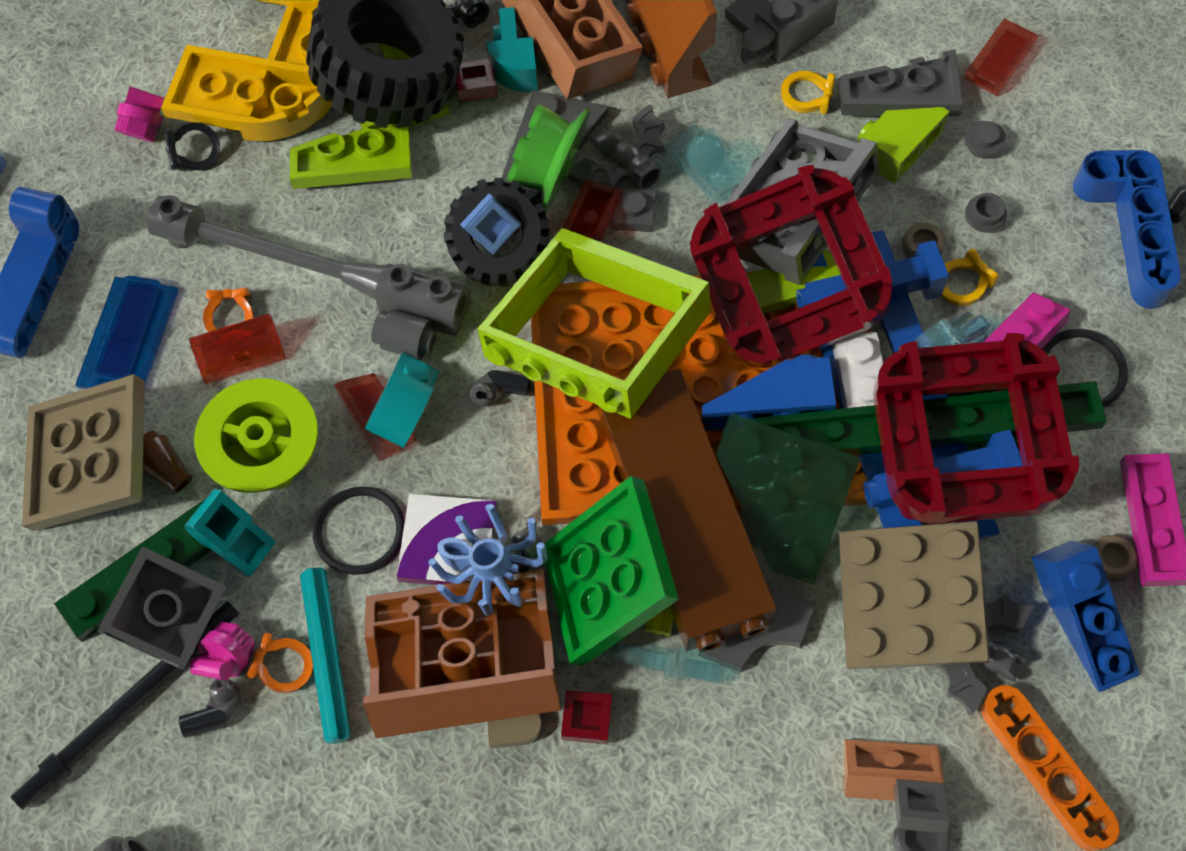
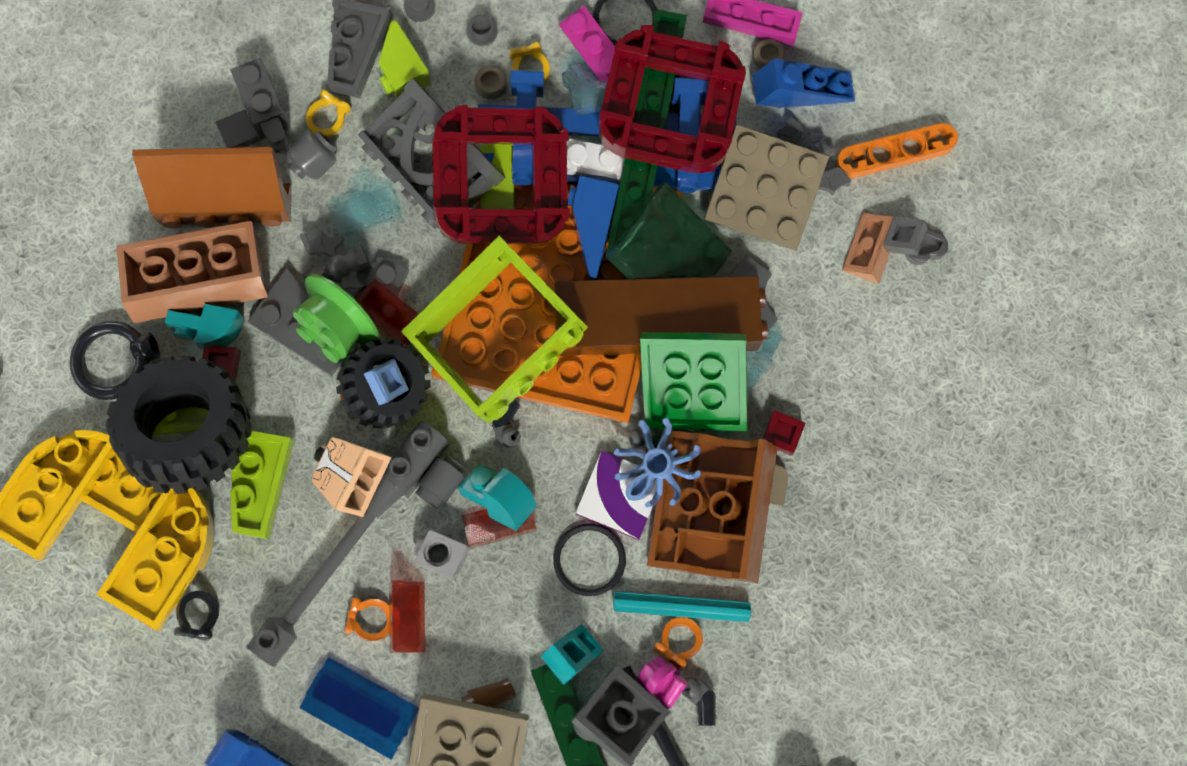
camera: 80 degrees left, 10 degrees up
(139, 115) = (146, 654): dark pink piece -> none
(256, 435) = (499, 613): lime piece -> none
(318, 376) = (452, 565): none -> light grey brick
(378, 232) = (348, 474): none -> light nougat torso
(750, 87) = (311, 155): none -> dark grey head

